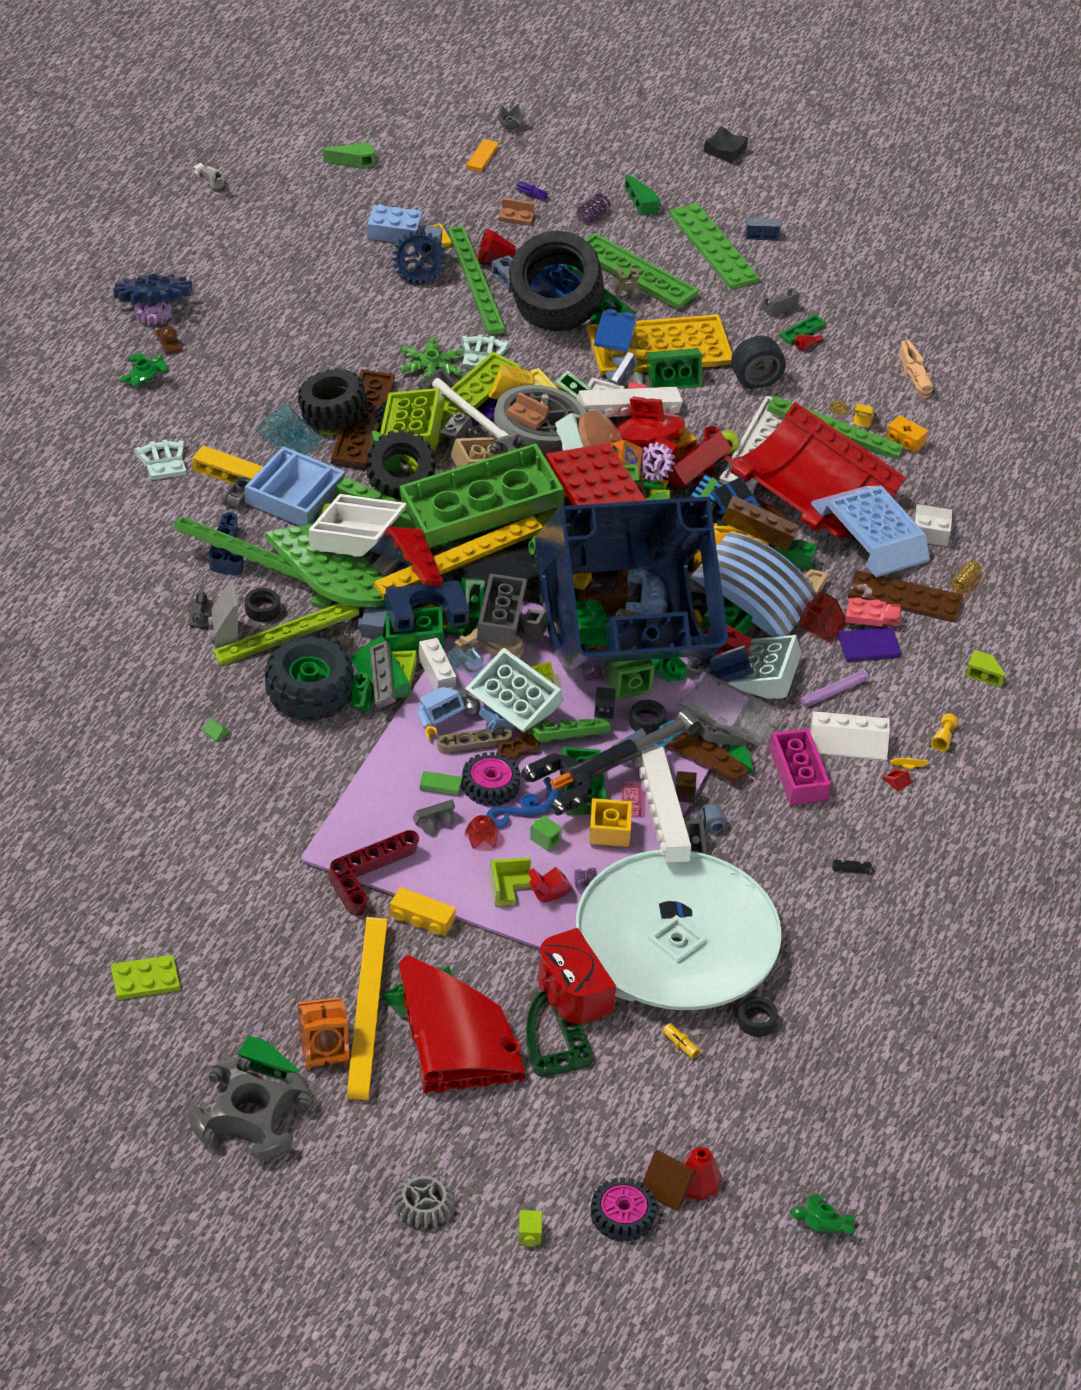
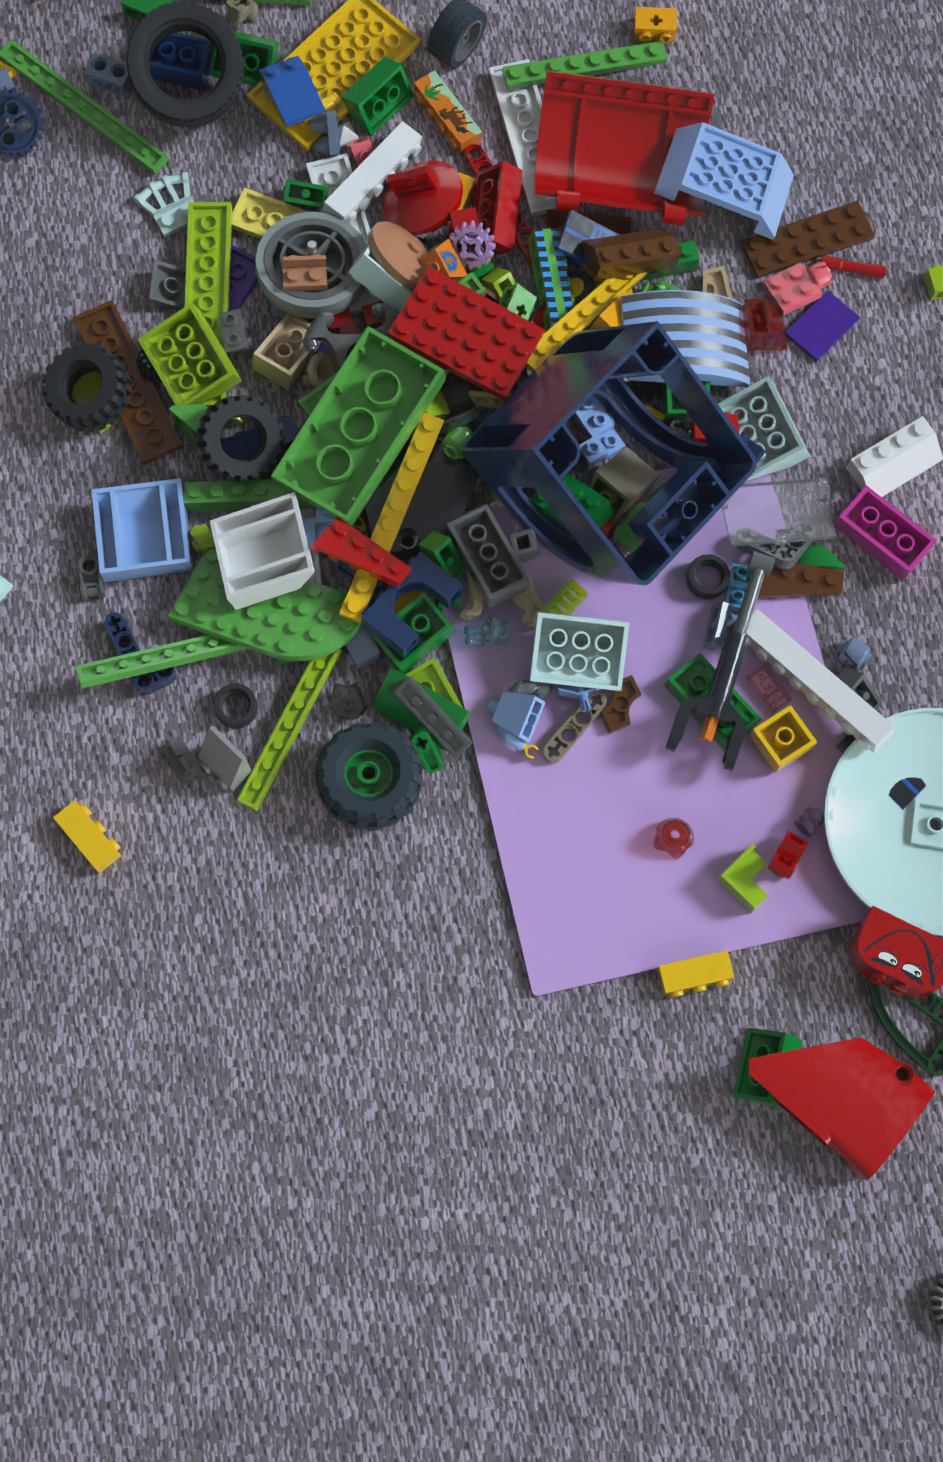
camera: 35 degrees left, 30 degrees up
(101, 611) = (88, 835): none -> yellow brick
(145, 977) = (511, 1250): lime plate -> none
(215, 730) = (323, 897): bright green slope -> none
(222, 465) = (51, 550): yellow brick -> none
(253, 1127) = (767, 1344): dark grey piece -> none
(266, 1058) = (698, 1261): green slope -> none
(289, 430) = (70, 456): clear light blue slope -> none
(323, 1032) = (736, 1196): orange piece -> none
(349, 872) = (606, 963): dark red beam -> none
(367, 1009) = (741, 1127): yellow beam -> none
(427, 816) = (611, 857): dark grey tile -> none
(431, 359) = (130, 252): bright green piece -> none
(436, 664) = (471, 664): white brick -> none
(440, 783) = (587, 804): bright green tile -> none
(469, 409) = (186, 291): white piece -> none
(491, 779) = (626, 782): black wheel -> none
(494, 247) = (70, 51): red cone -> none
(509, 378) = (245, 235): yellow slope -> none
(526, 808) = (688, 775): blue plant -> none
(545, 833) = (732, 794): bright green brick -> none
(567, 728) = (651, 650): bright green wing -> none
(604, 702) = (661, 594): black brick -> none
(686, 786) = (811, 638): dark brown brick -> none
(714, 401) = (447, 112): none -> orange brick
(733, 440) = (502, 152): lime head -> none
(834, 688) = (827, 427): lavender axle -> none
(838, 407) = (562, 32): clear yellow tile -> none
(863, 415) = (596, 26): yellow slope -> none
(932, 632) = (866, 269): none -> red piece
(934, 523) = (764, 123): white slope -> none
(965, 576) = (844, 175): clear yellow axle -> none

